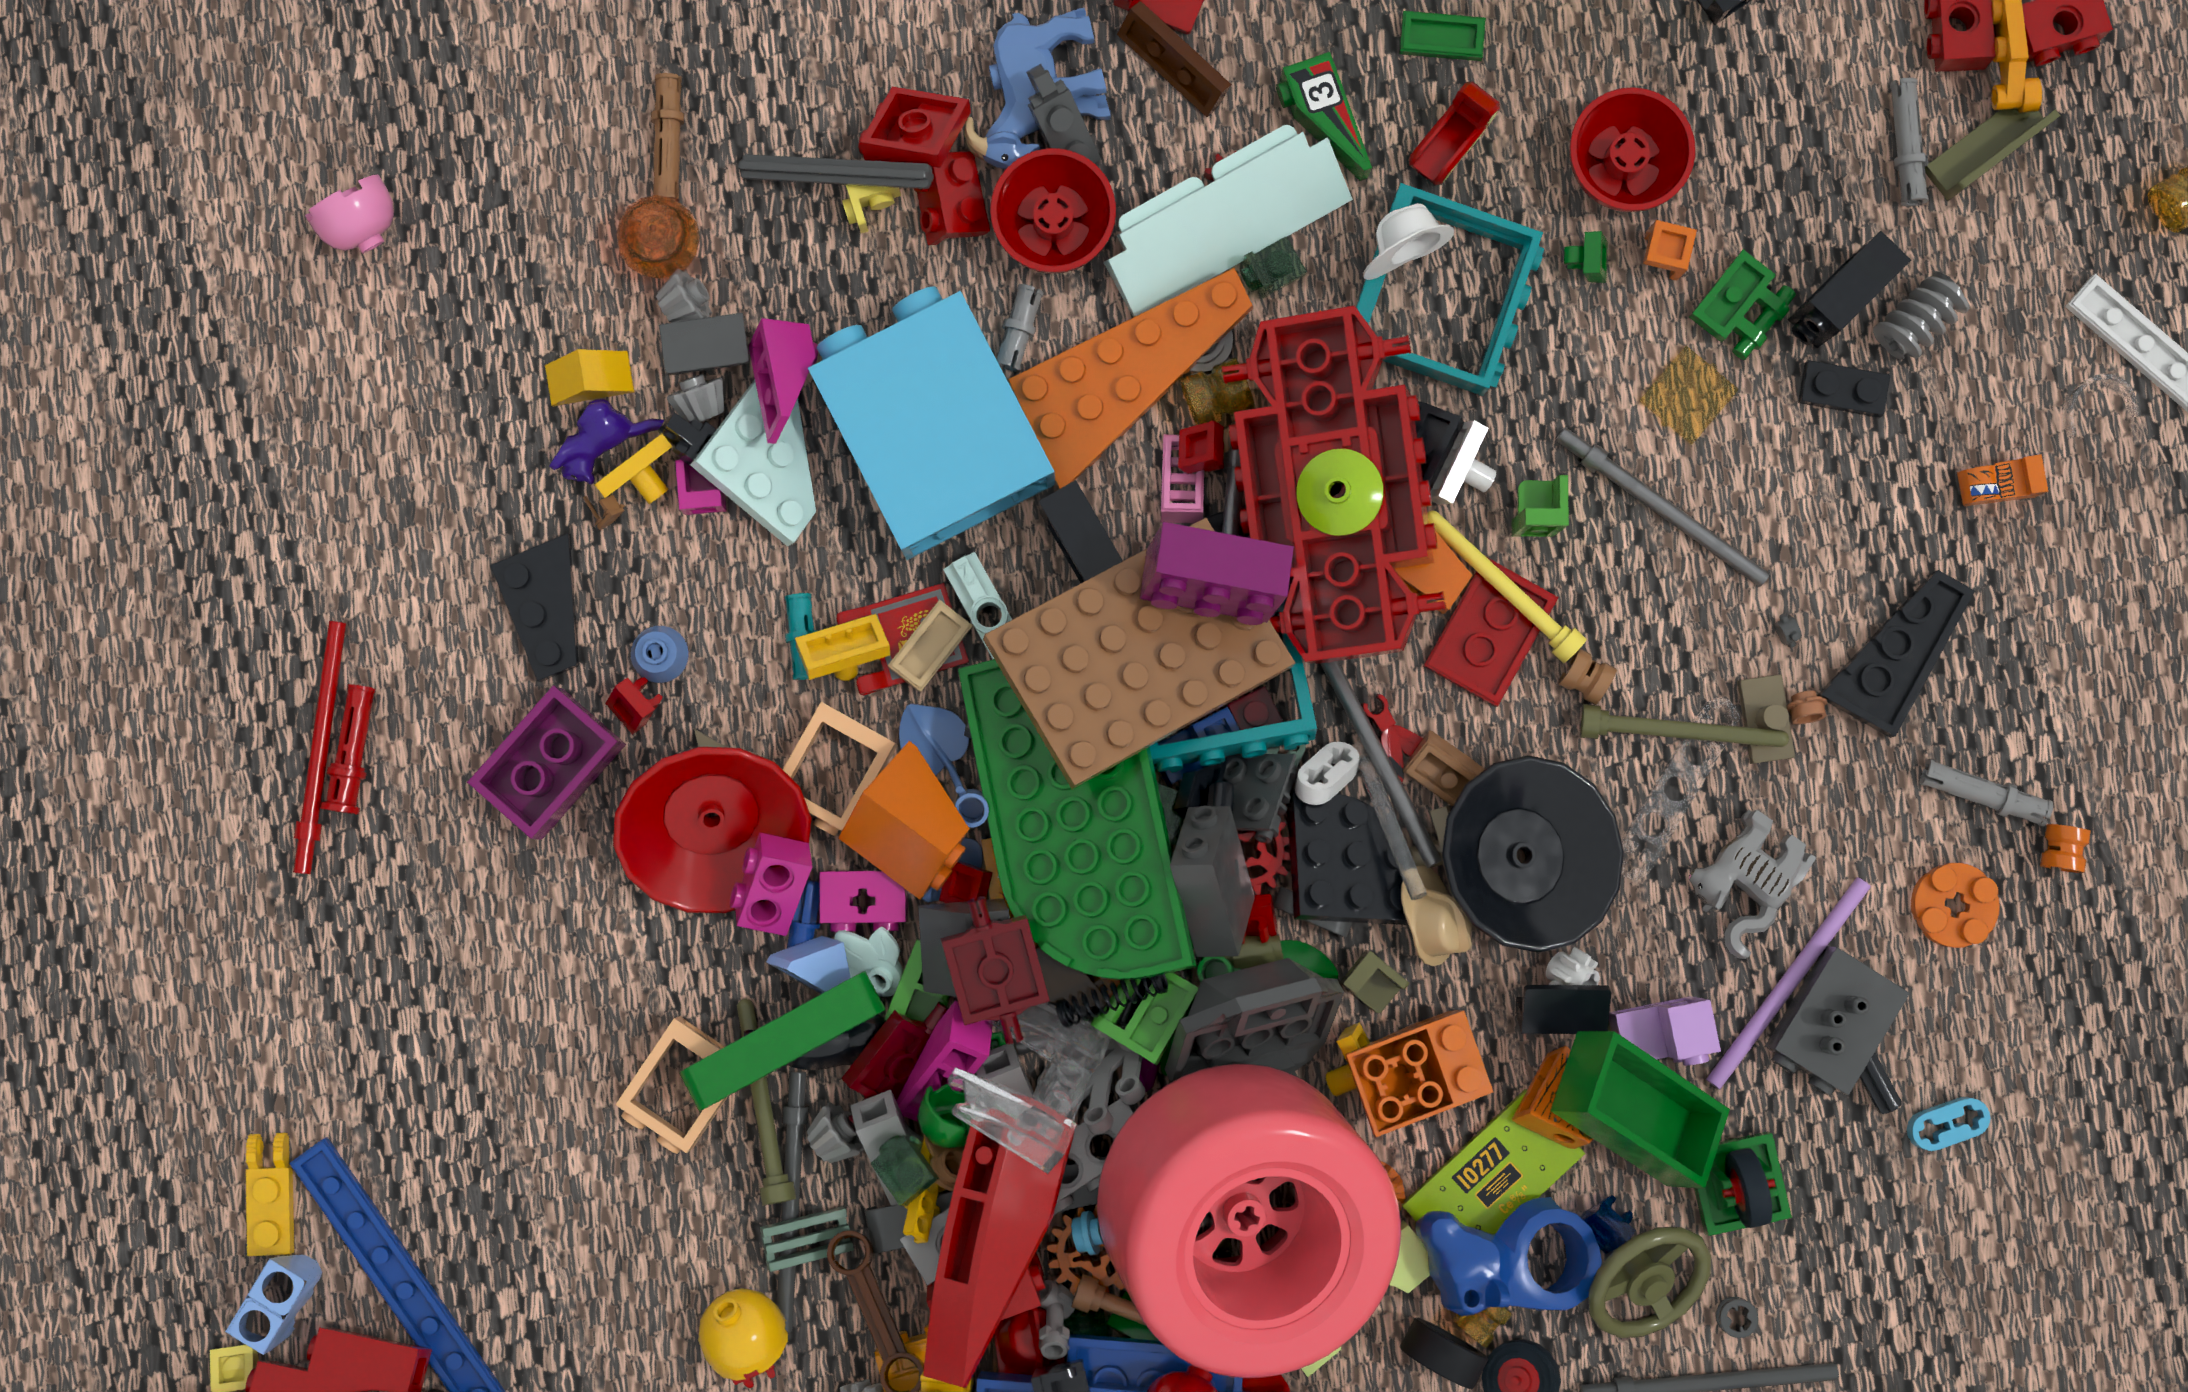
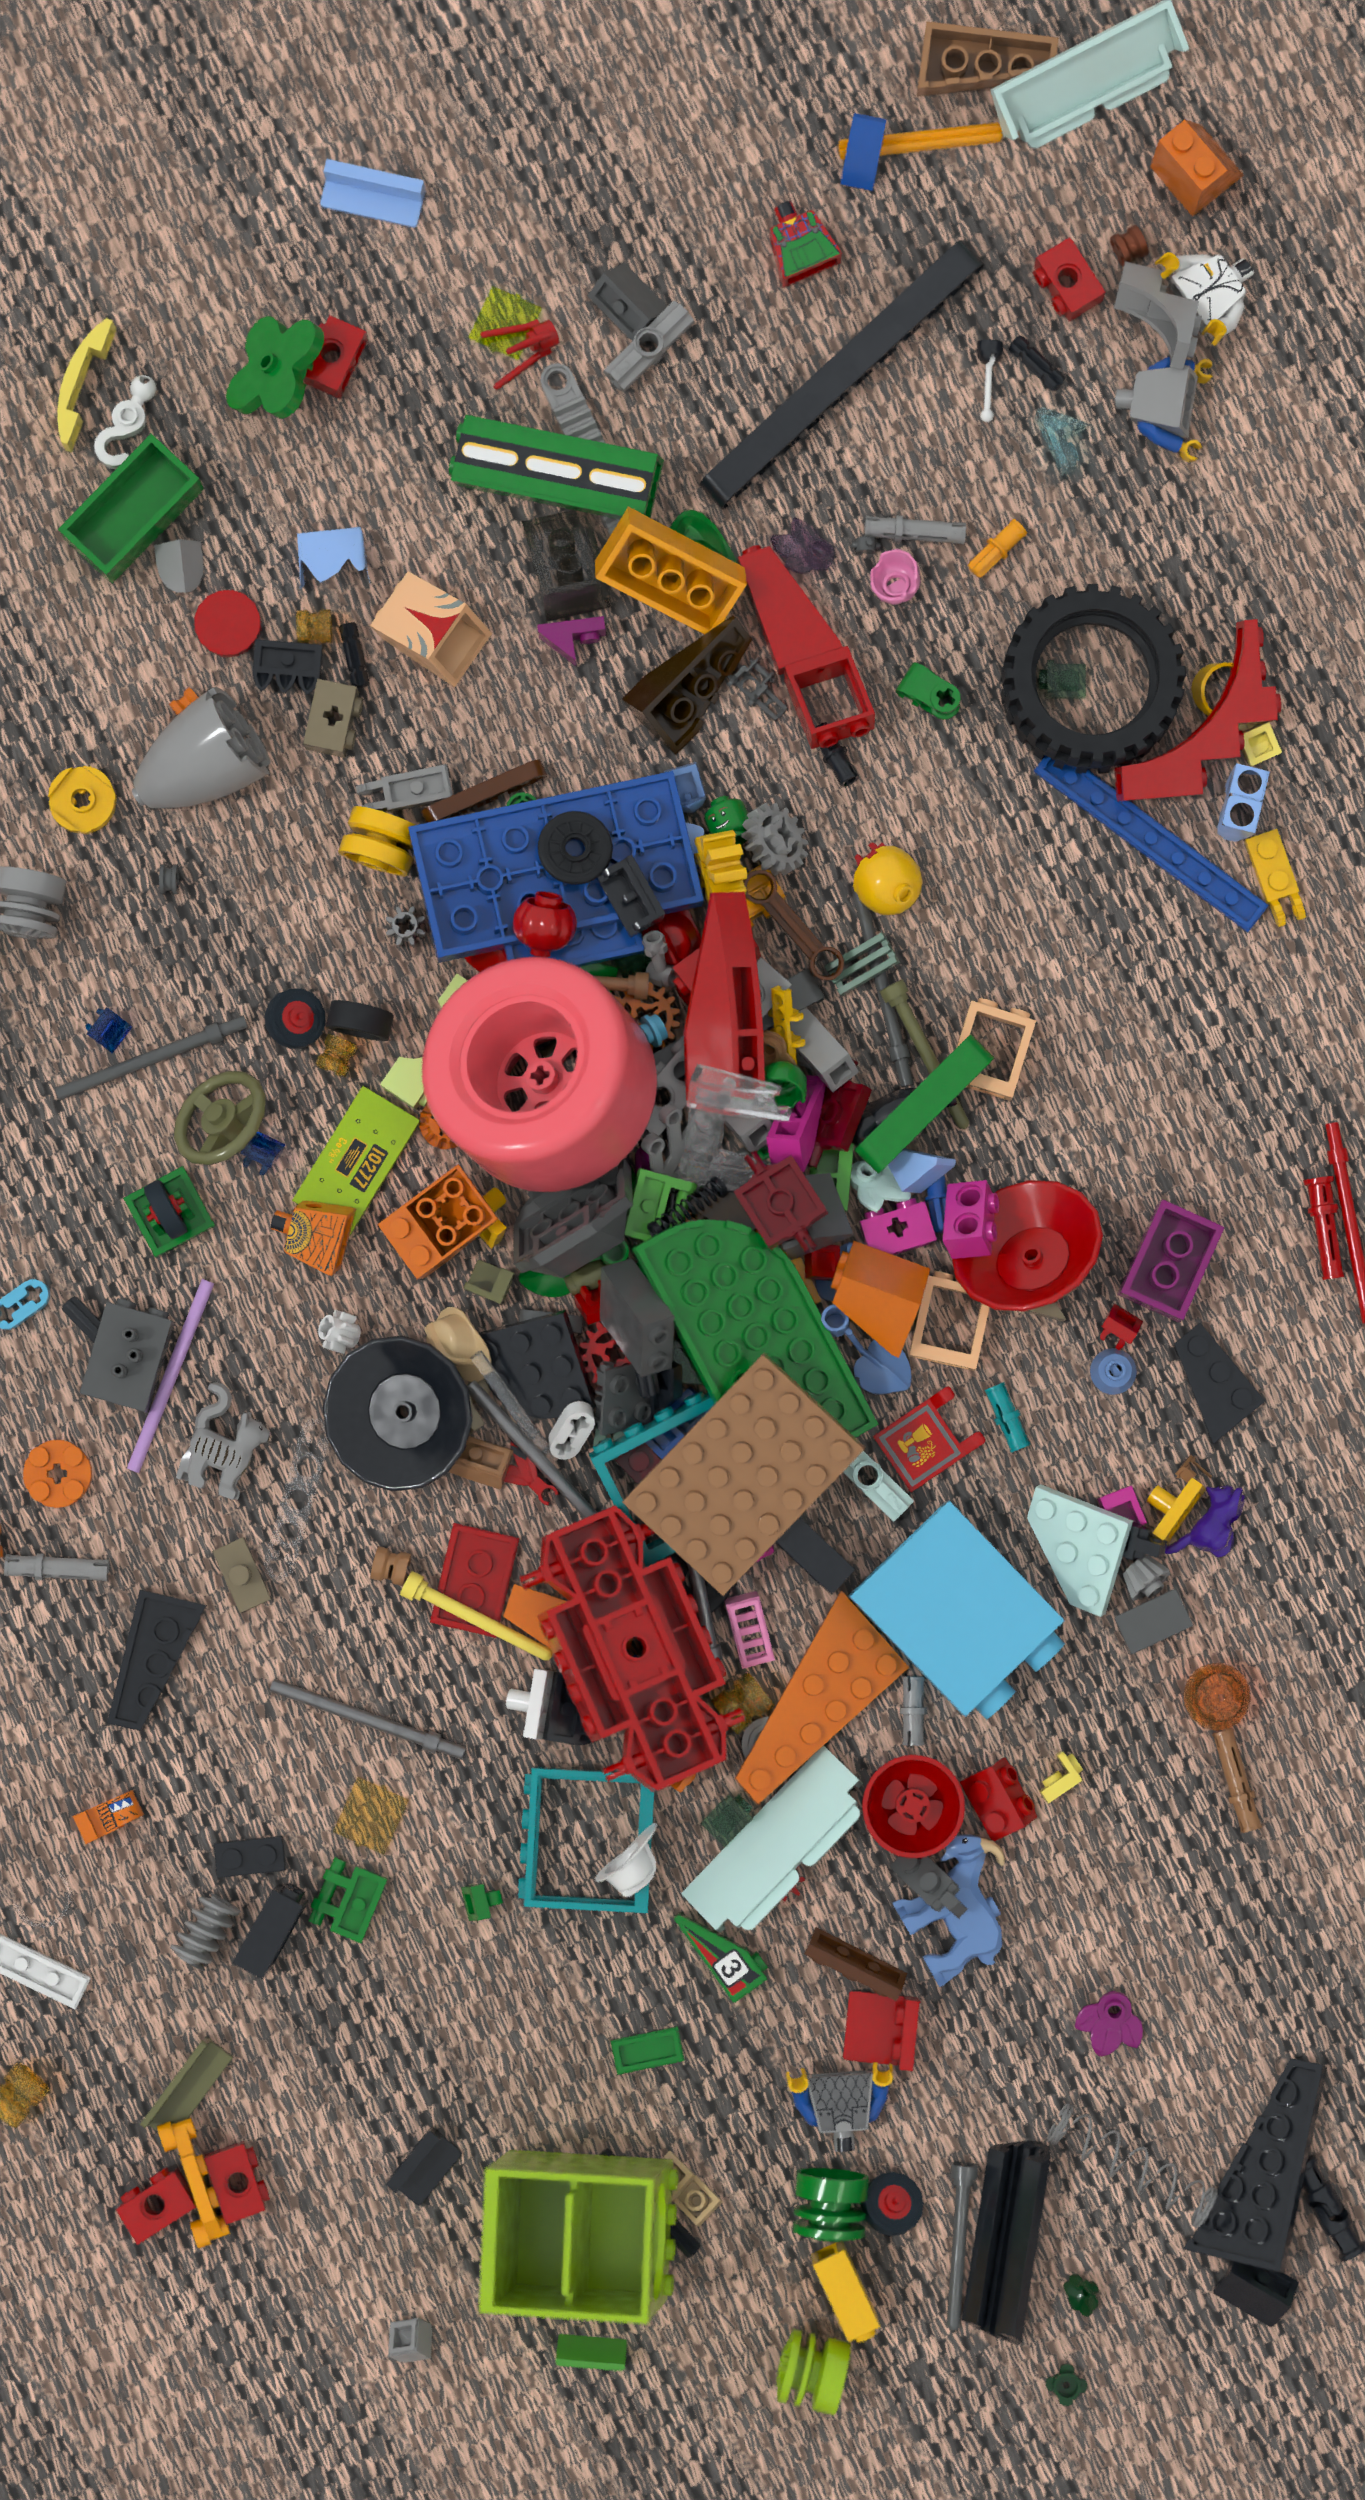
camera: 170 degrees right, 0 degrees up
(589, 376) = (1237, 1571): yellow slope -> none
(683, 298) = (1181, 1653): light grey piece -> none
(780, 366) = (1088, 1623): dark pink slope -> none
(833, 1134) = (865, 1046): light grey piece -> none
(836, 171) = (1093, 1788): dark grey axle -> none
(843, 648) = (972, 1416): yellow tile -> none
(904, 1168) = (804, 1036): clear green bracket -> none
(914, 127) = (1043, 1840): red plate -> none
(930, 646) = (906, 1438): tan tile -> none
(1201, 448) = (742, 1655): red tile -> none
(1216, 573) = (703, 1546): magenta brick -> none
(1358, 504) = (609, 1643): lime dish -> none
(1454, 133) = (616, 1967): red animal -> none
(1492, 1269) = (342, 1092): blue animal -> none
(1541, 508) = (465, 1686): bright green panel -> none
(1563, 1009) = (339, 1302): black panel -> none
(1599, 722) = (372, 1533): olive piece -> none
(1636, 129) = (461, 2013): red piece -> none
(1640, 1109) = (264, 1243): green piece -> none
(1669, 247) = (420, 1924): orange panel -> none
(1671, 1029) = (260, 1309): lavender brick -> none
(1749, 1312) = (135, 1117): dark grey bush -> none
(1788, 630) = (243, 1649): dark grey piece -> none
(1806, 707) = (213, 1592): nougat plate -> none
(1910, 155) = (246, 2059): light grey pin -> none

